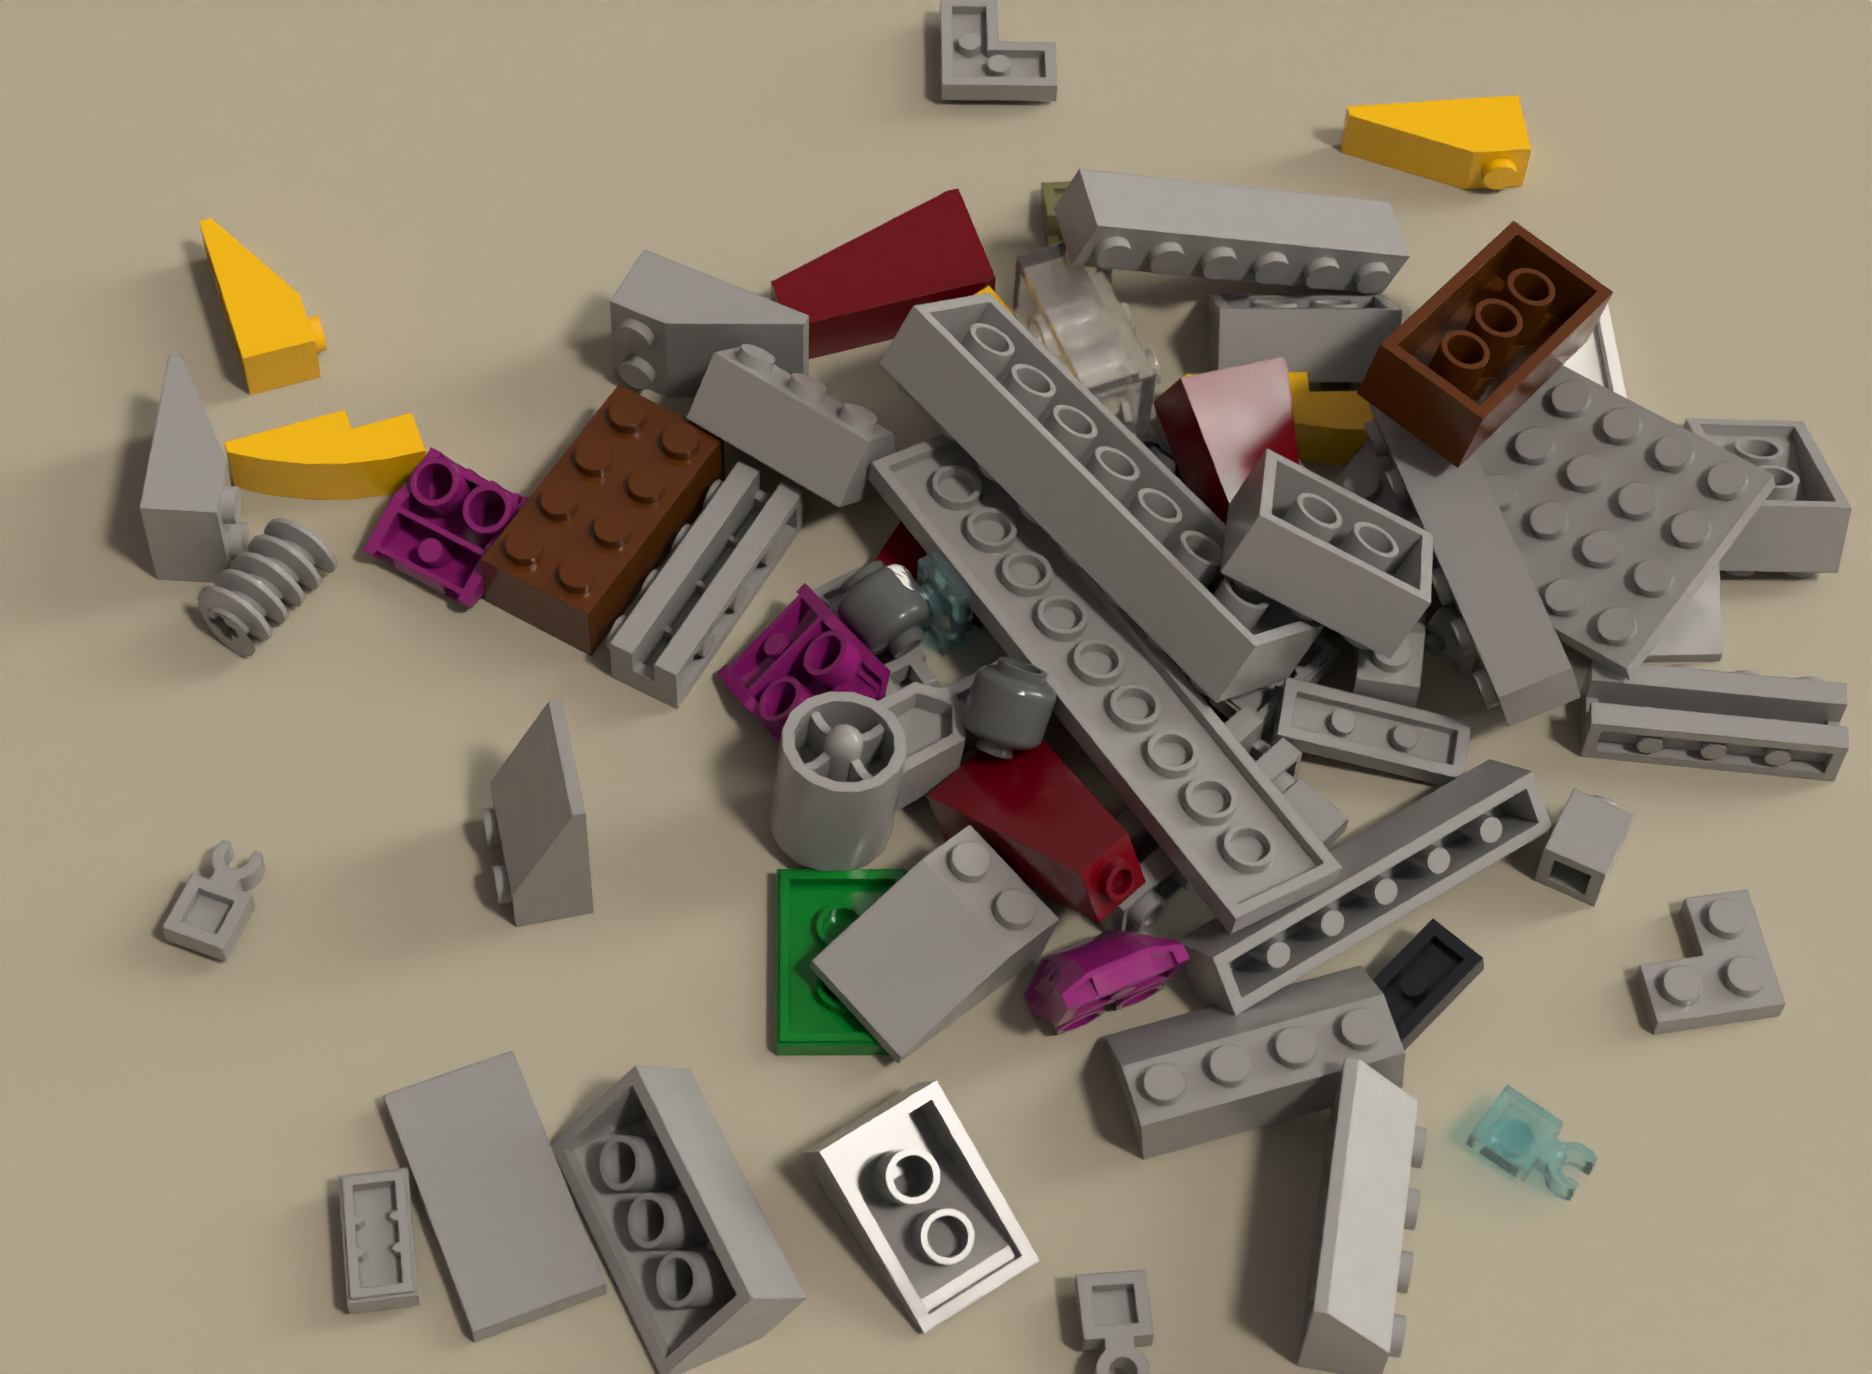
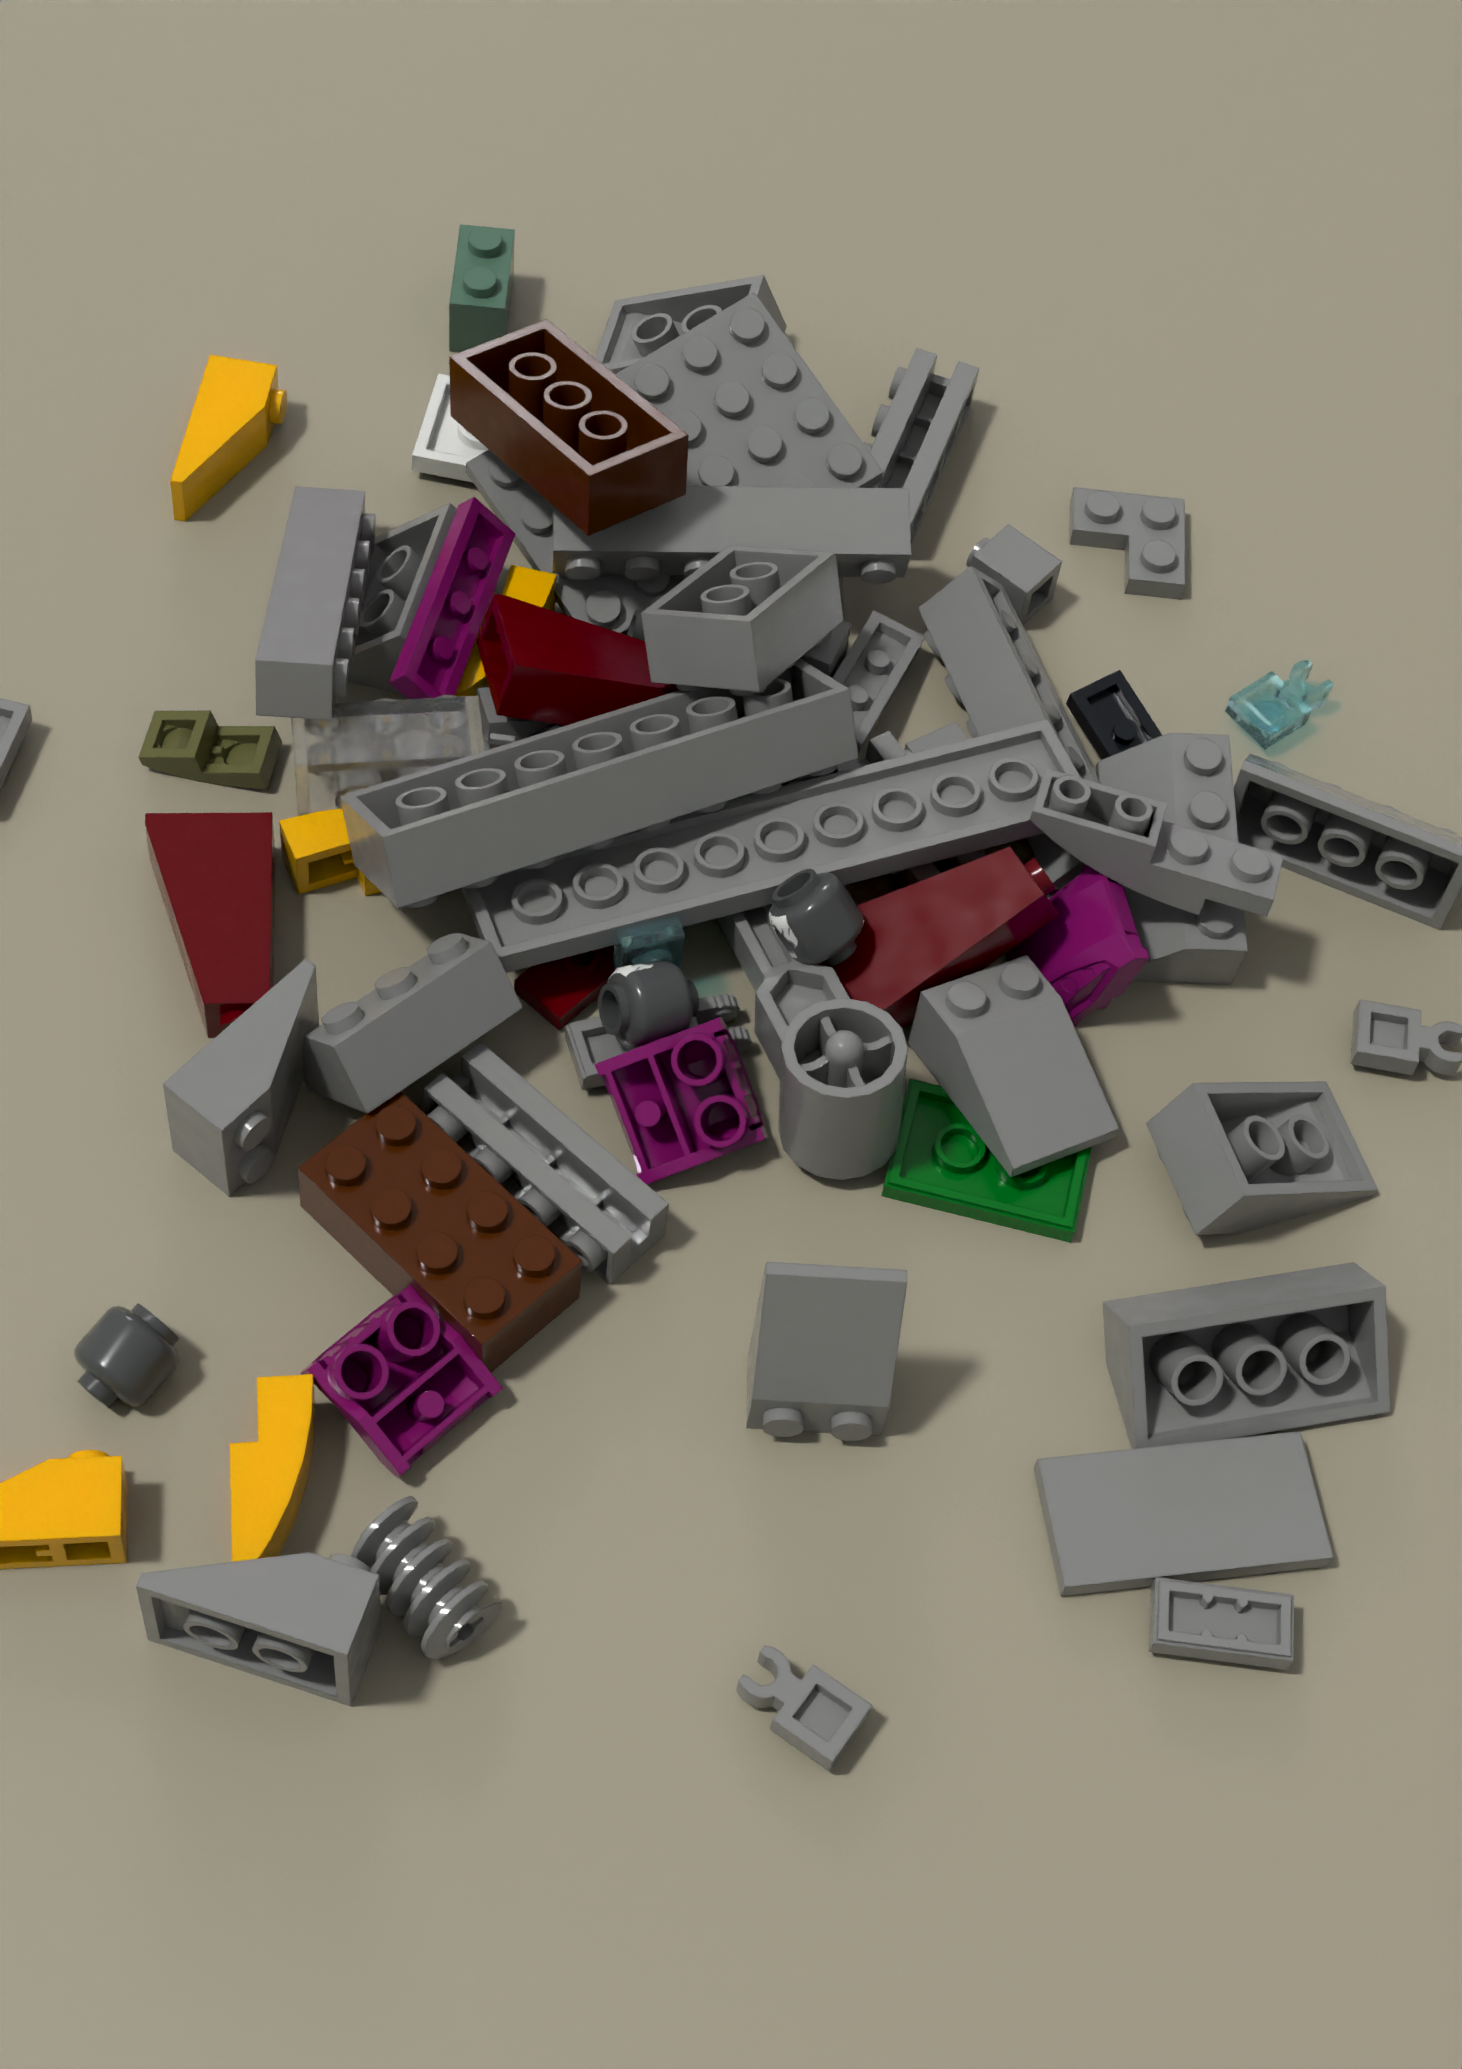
camera: 80 degrees left, 0 degrees up
(422, 332) = (126, 1356): none -> dark grey head
(1192, 975) = (1132, 845): none -> light grey slope
(1308, 341) = (453, 603): none -> magenta plate
(1736, 295) = (481, 286): none -> sand green brick

